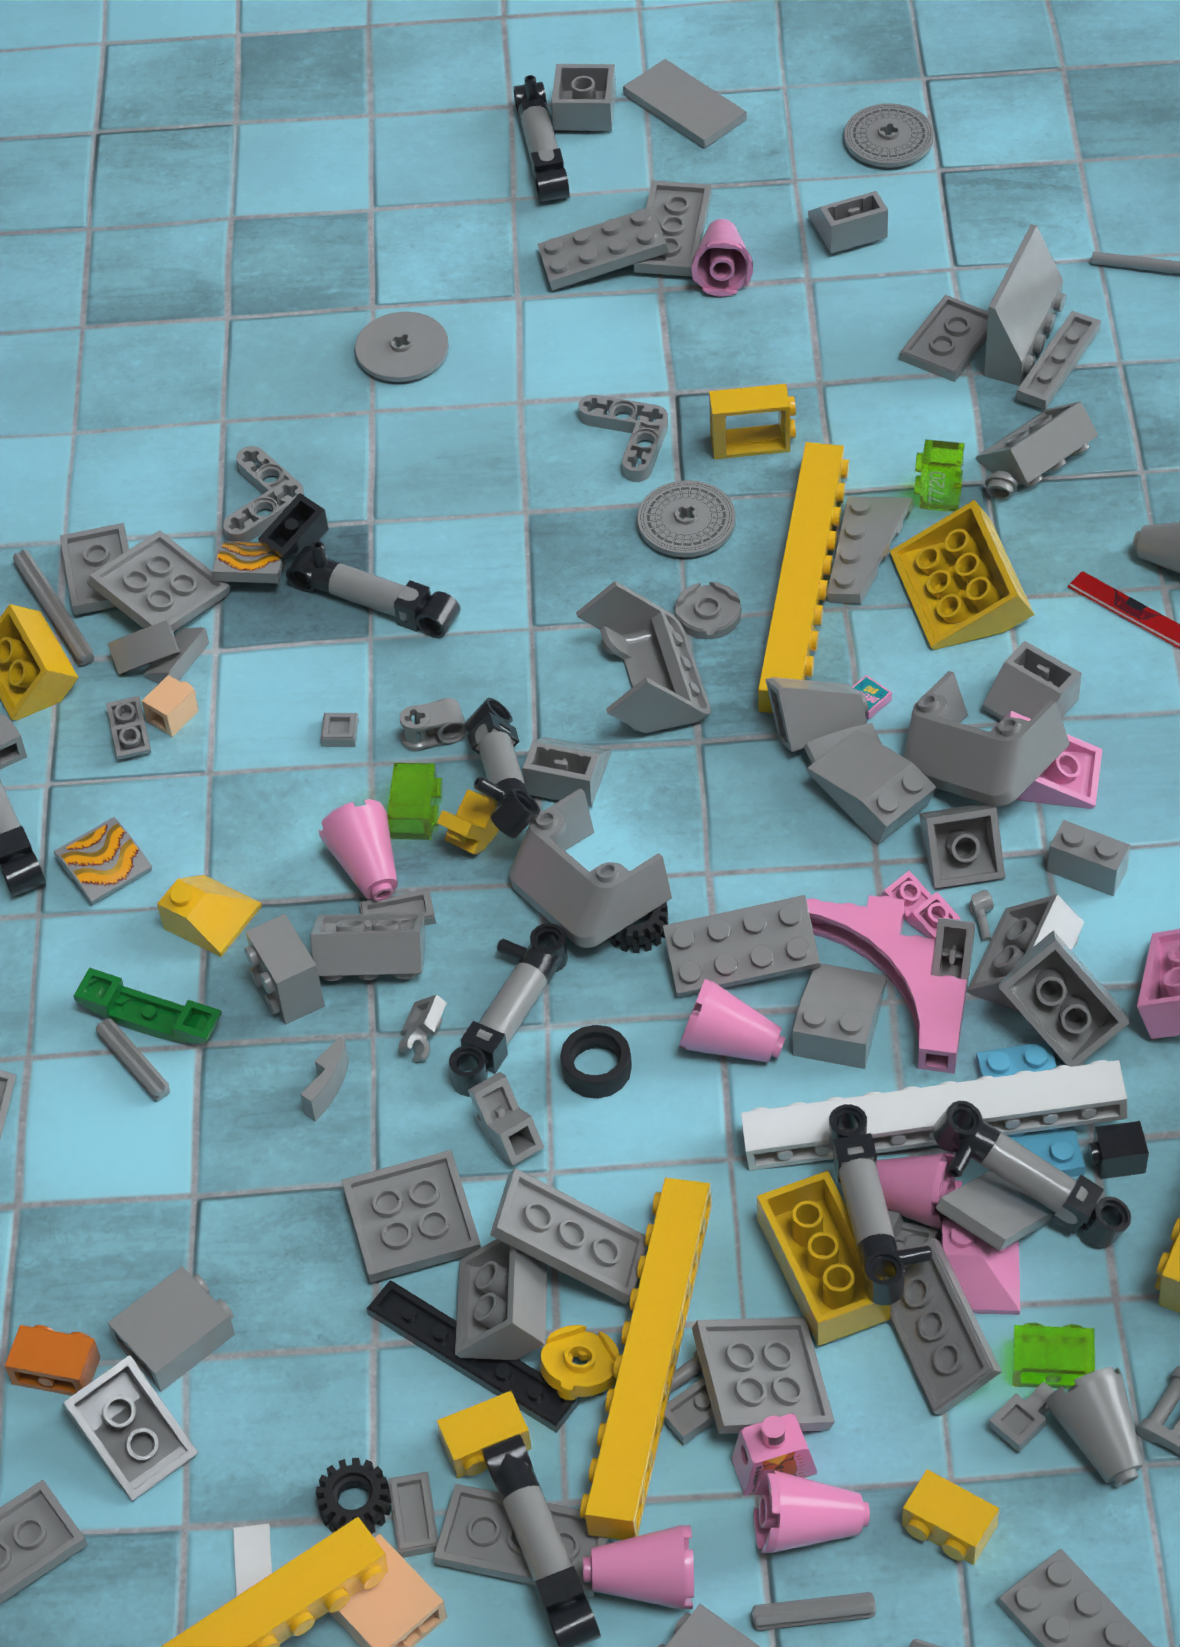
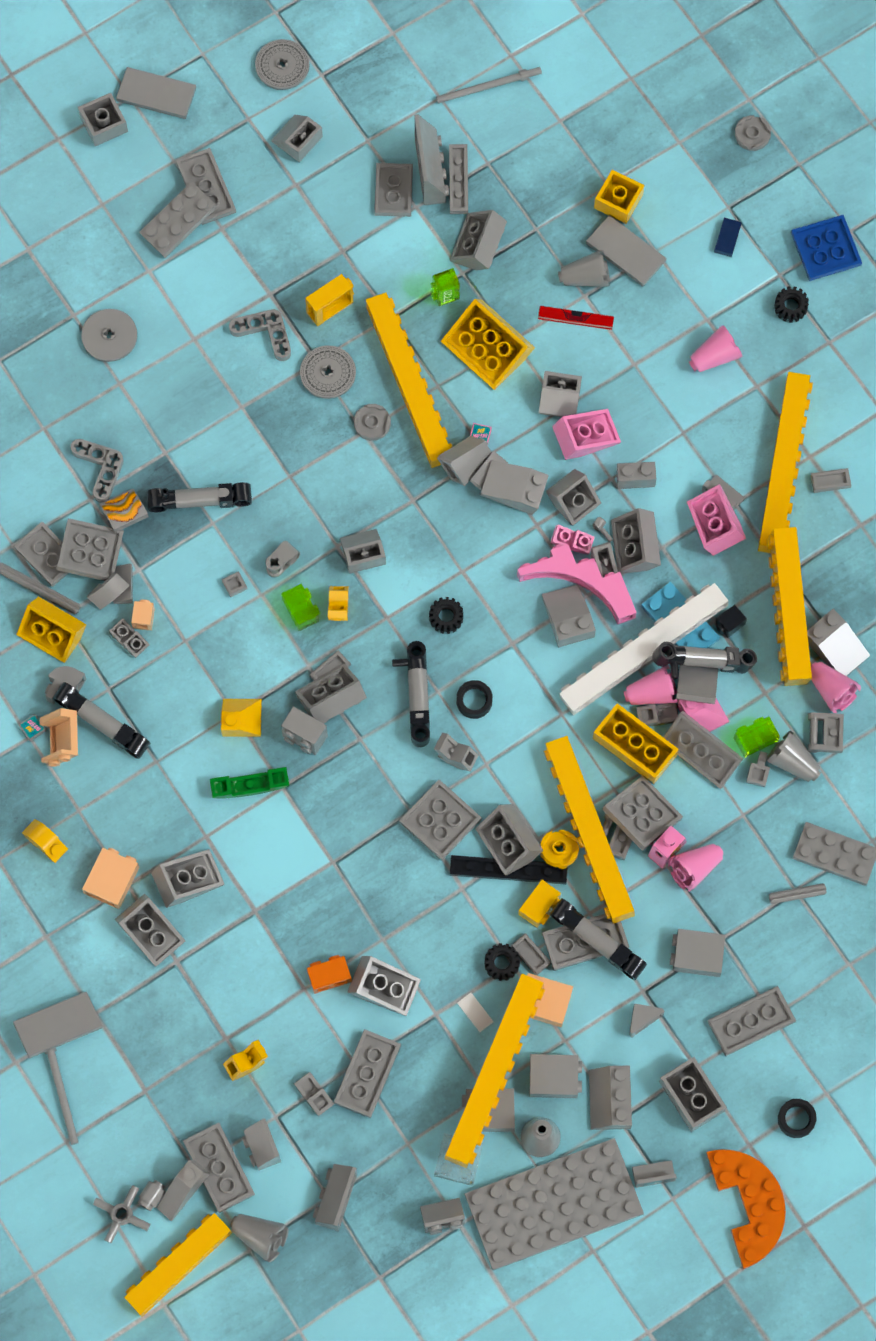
camera: 35 degrees left, 20 degrees up
(103, 860) = (169, 717): slope -> none
(133, 1059) = (258, 811): light grey axle -> none
(172, 1327) = (371, 930): light grey brick -> none
(295, 527) = (137, 482): black slope -> none
(331, 1071) = (357, 770): light grey slope -> none
(363, 847) = (298, 648): bright pink cone -> none
(421, 1021) = (381, 722): light grey plate -> none
(495, 742) = (322, 555): black piece -> none
(545, 156) = (110, 174): black piece -> none
(569, 1235) = (523, 794): light grey plate -> none
(579, 901) = (409, 622): light grey windscreen -> none
(645, 1568) = (648, 925): bright pink cone -> none
(657, 658) = (370, 469): light grey windscreen -> none
(722, 260) = (247, 196): bright pink cone -> none
(730, 1027) = (525, 651): bright pink cone -> none
(742, 945) = (506, 606): light grey plate -> none
(813, 1611) = (721, 904): light grey axle -> none
(858, 1173) = (629, 694): black piece -> none
(862, 544) = (425, 339): light grey wing -> none
(949, 1517) = (754, 833): yellow brick -> none
(976, 762) = (556, 455): light grey windscreen -> none
(1001, 485) = (474, 274): light grey plate -> none
(1063, 1000) = (670, 561): light grey slope -> none

